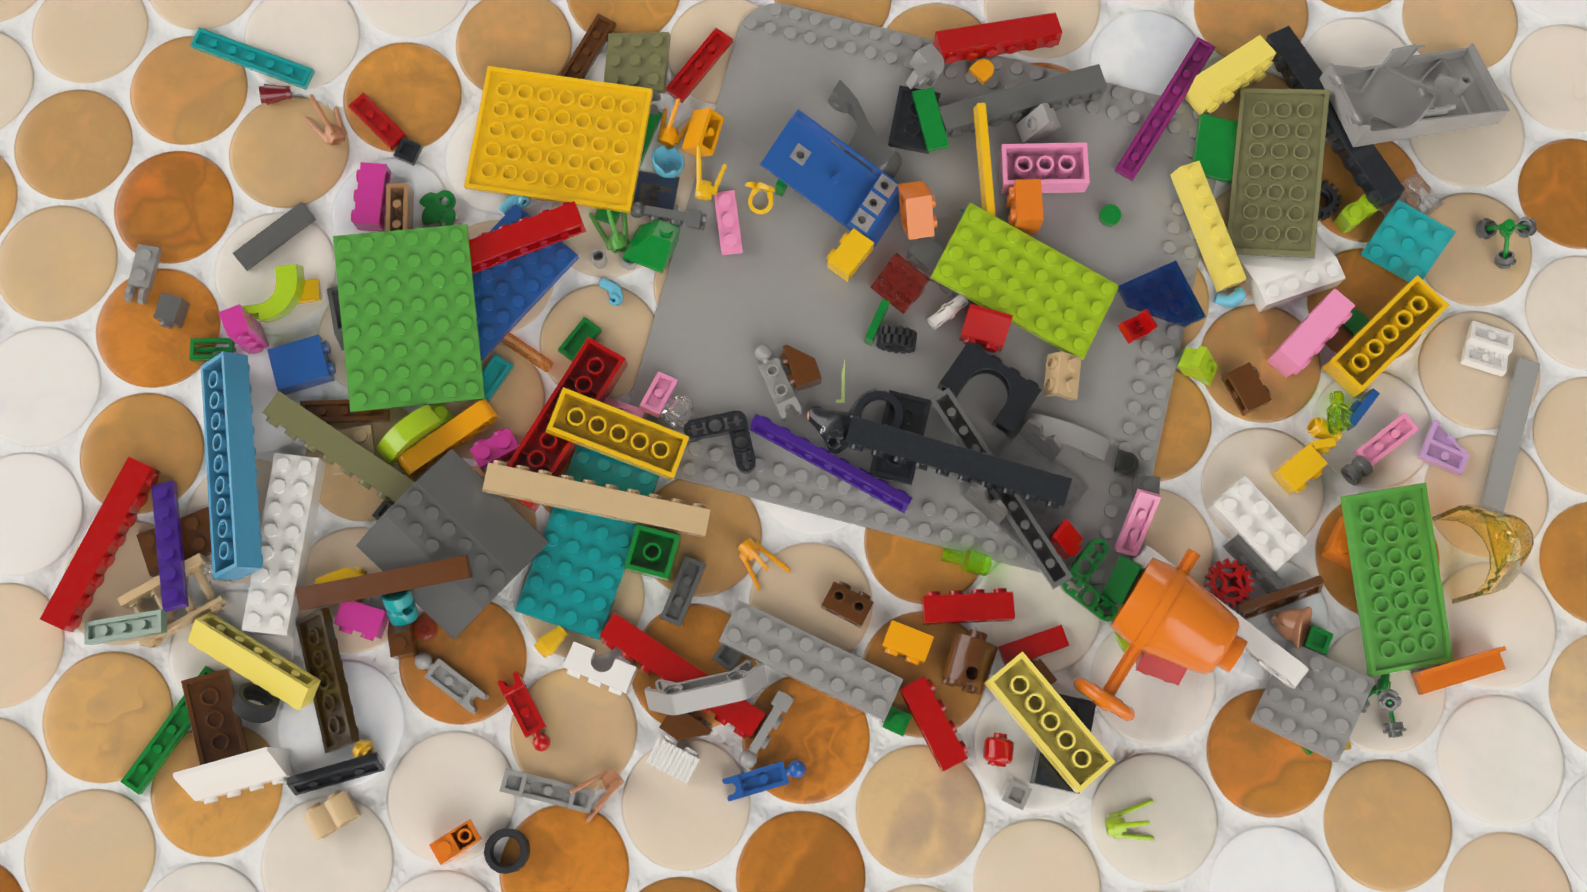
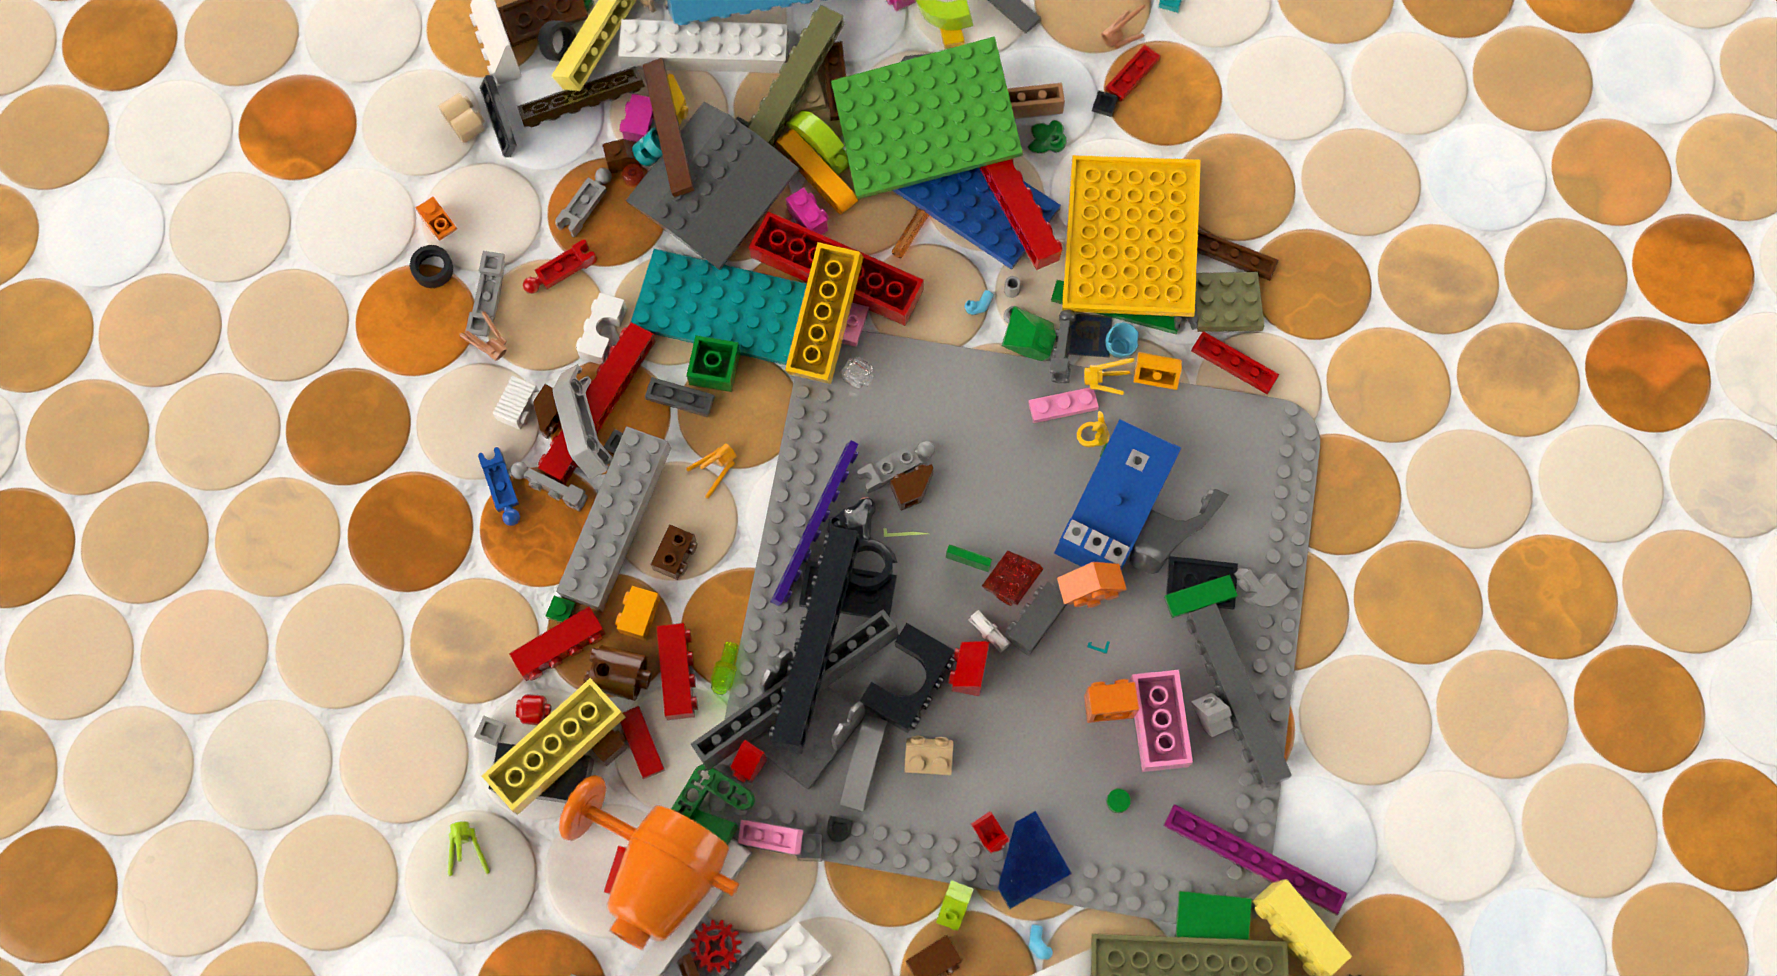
camera: 90 degrees right, 5 degrees down
(301, 364) = (877, 38): blue brick -> none
(362, 748) = (521, 135): yellow plate -> none
(370, 197) = (1051, 71): dark pink brick -> none
(495, 375) = (883, 206): teal tile -> none
(522, 202) = (1063, 201): medium azure arm -> none
(549, 642) = (625, 282): yellow cone -> none
(578, 336) = (934, 283): green tile -> none
(596, 500) = (759, 303): tan brick -> none
(617, 241) = (1032, 301): bright green plant -> none
(658, 394) = (874, 353): bright pink plate -> none
(668, 135) = (1153, 340): light orange plant -> none
(734, 431) = (841, 428): black beam -> none
(850, 254) = (1039, 525): yellow brick -> none
(896, 339) = (949, 577): black tyre -> none
(982, 70) = (1270, 653): light orange tile -> none
(984, 158) = (1150, 656): yellow tile -> none
(998, 38) = (1310, 667): red brick -> none
(1025, 279) = (1027, 707): lime plate -> none
(1208, 226) = (1116, 909): light yellow brick -> none

